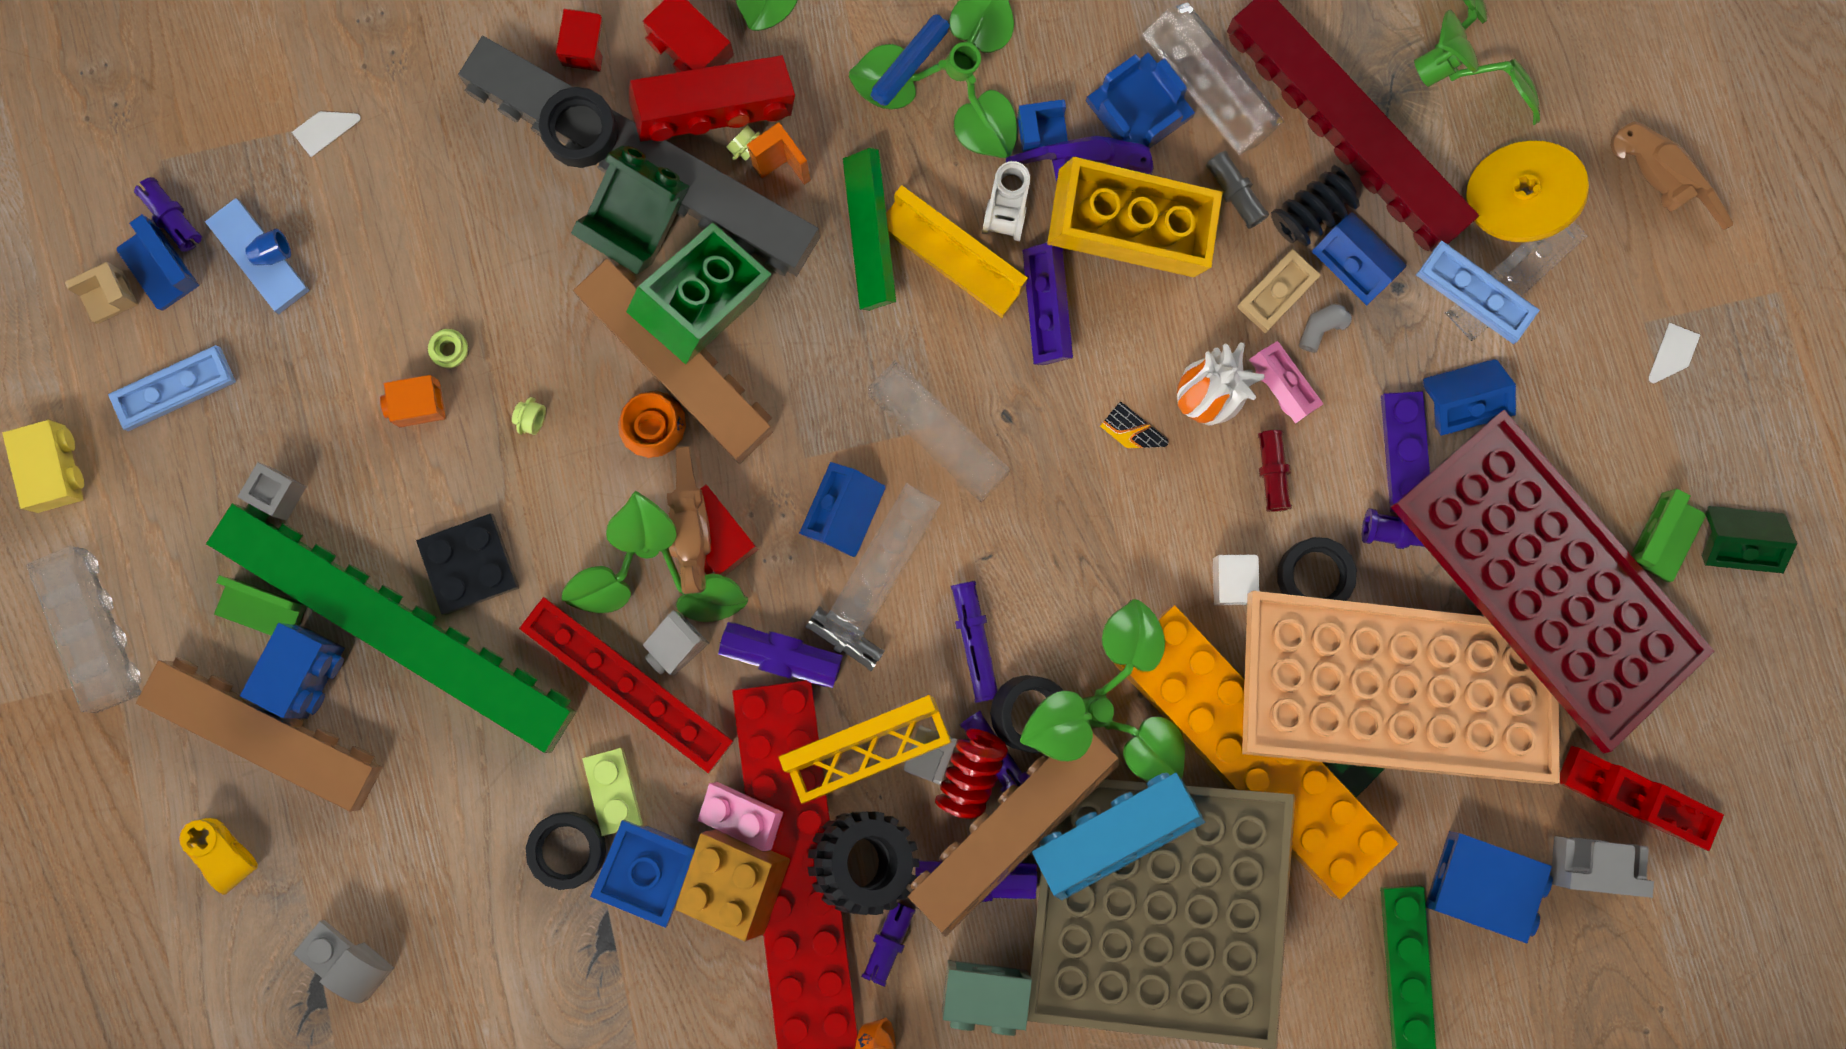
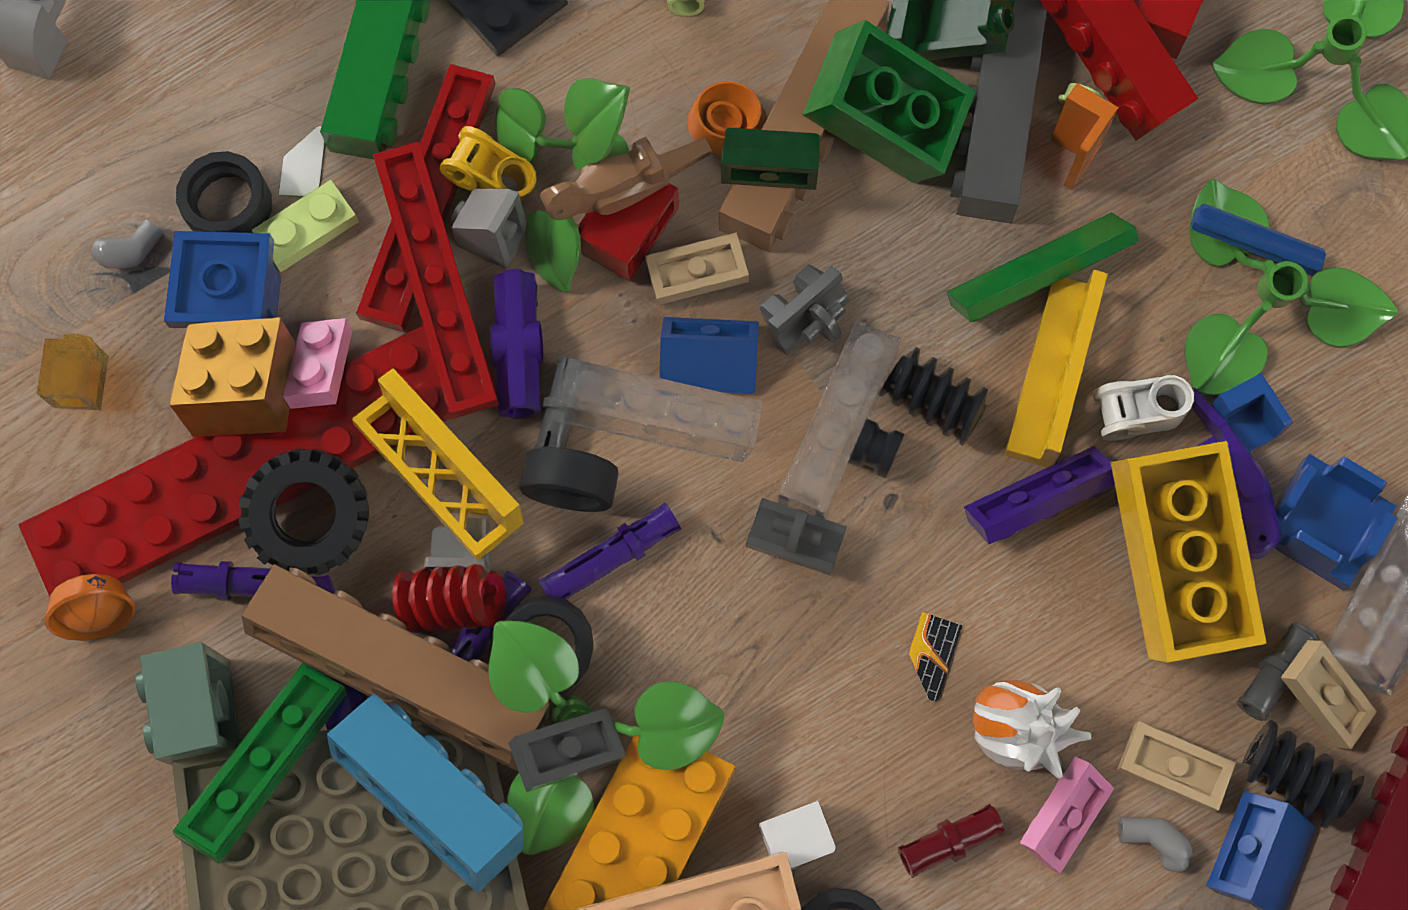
camera: 75 degrees right, 10 degrees down
(556, 778) = (303, 166): none -> white sticker
(581, 943) = (127, 251): none -> light grey arm
(623, 631) = (487, 164): none -> yellow piece
(672, 1015) = (72, 373): none -> clear yellow brick
(707, 700) = (435, 280): none -> red plate
(708, 402) = (770, 158): none -> dark green panel
(770, 493) = (697, 268): none -> tan plate
(842, 417) = (810, 312): none -> dark grey hips
(911, 651) = (569, 479): none -> black tyre
(943, 348) = (936, 395): none -> black piece
(969, 408) = (876, 448): none -> black wheel
(1015, 497) = (796, 536): none -> dark grey hips
(1052, 952) = (259, 763): none -> green tile
(1124, 722) = (566, 749): none -> dark grey plate
(1269, 162) = (1329, 694): none -> tan plate

